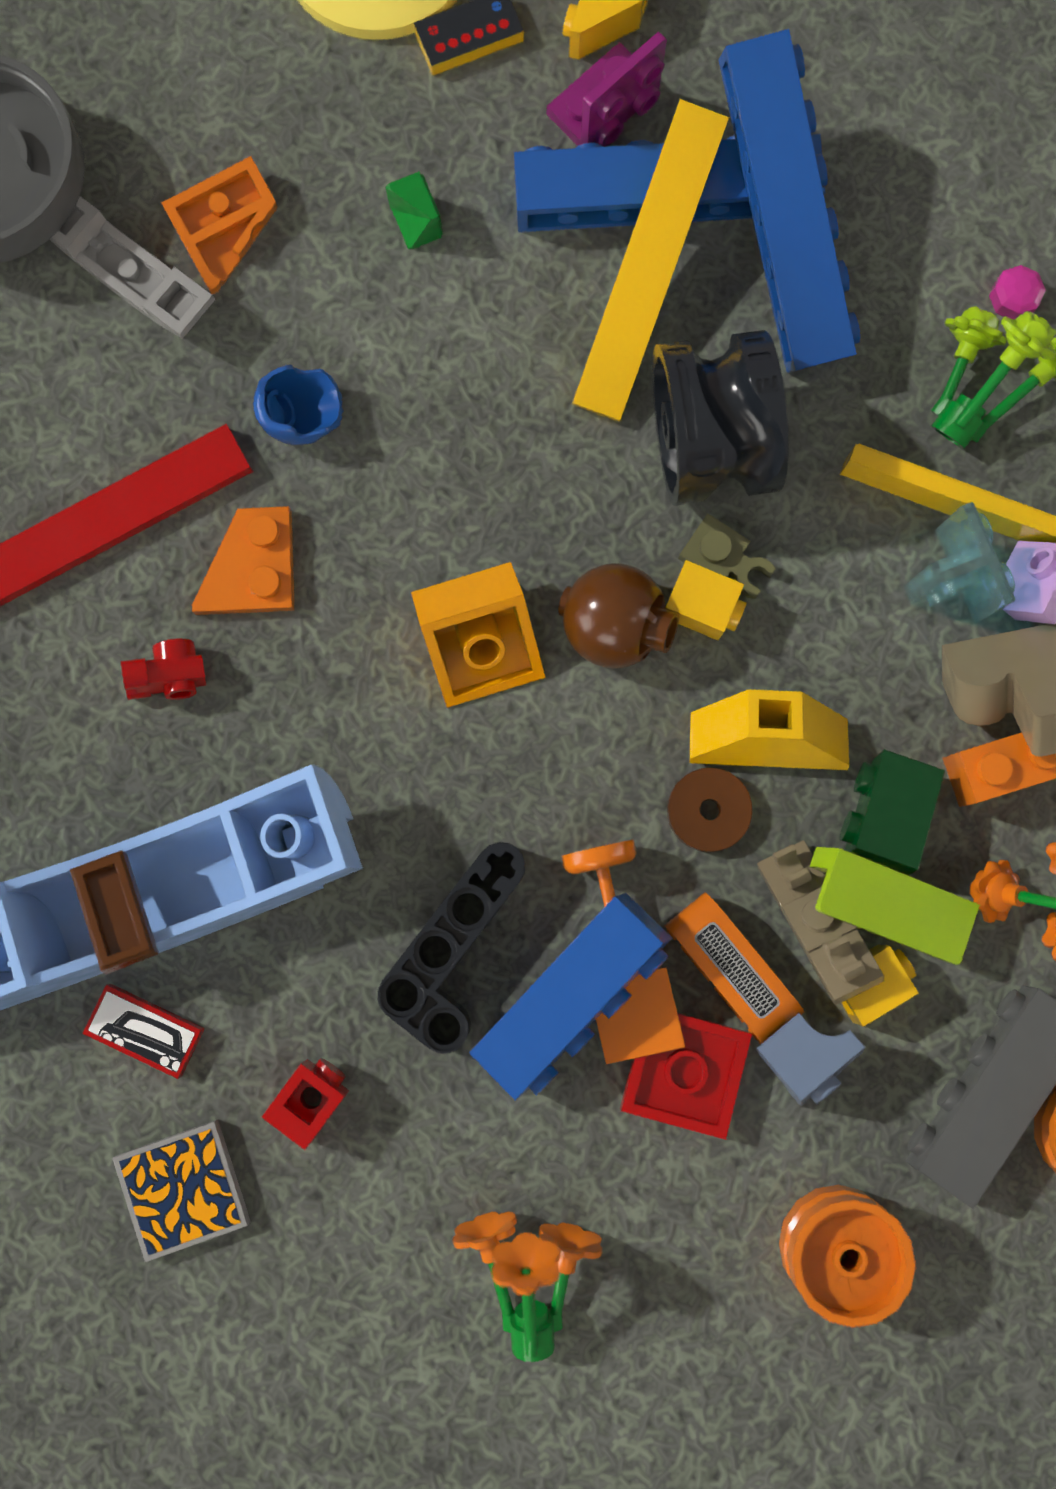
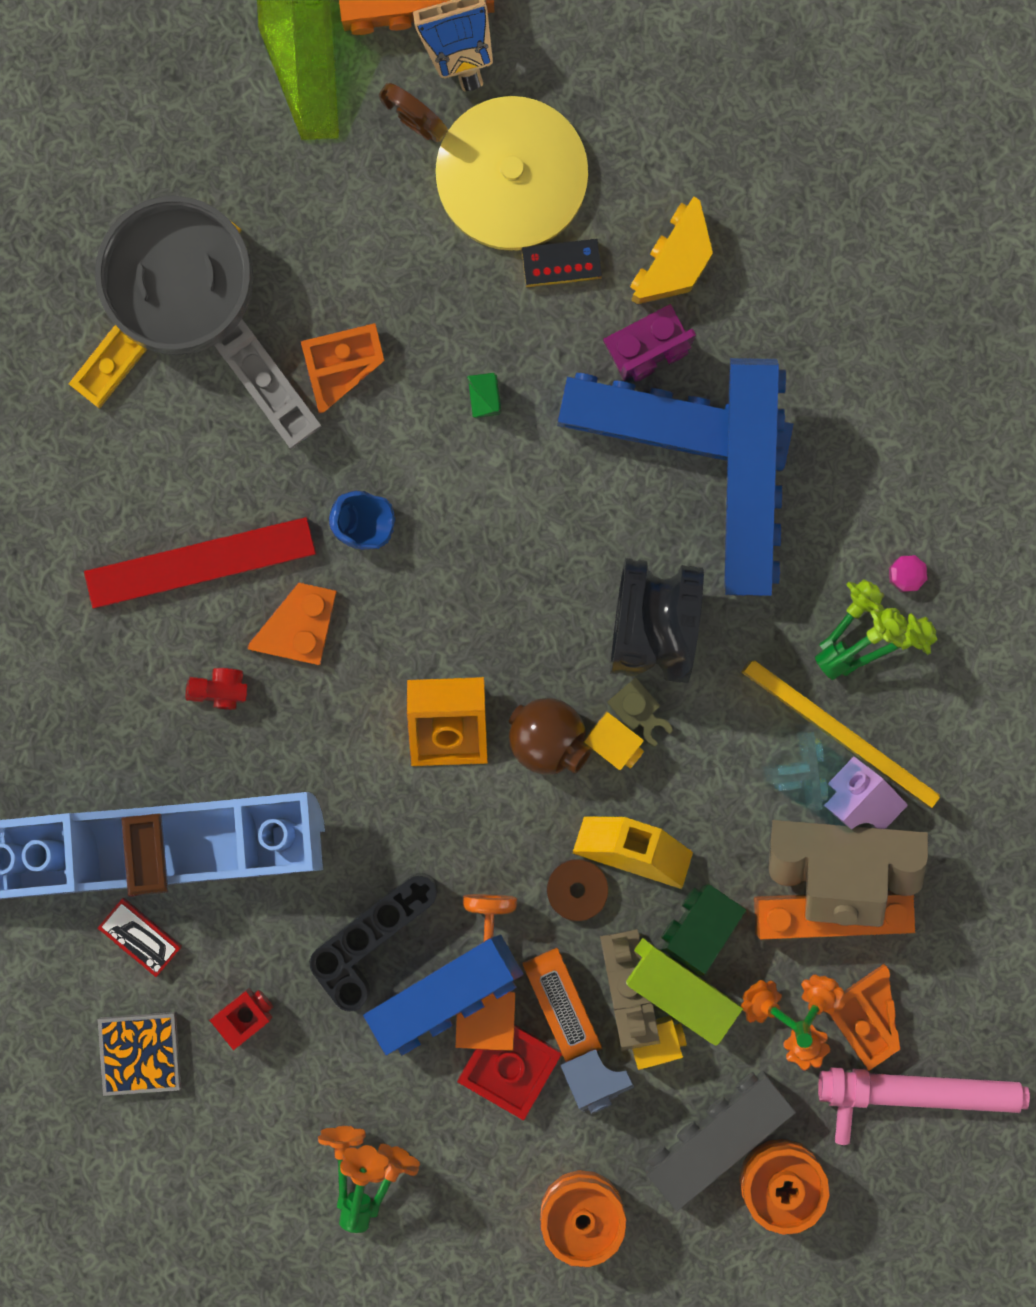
camera: 10 degrees right, 5 degrees up
(650, 259) = (643, 485): yellow tile -> none

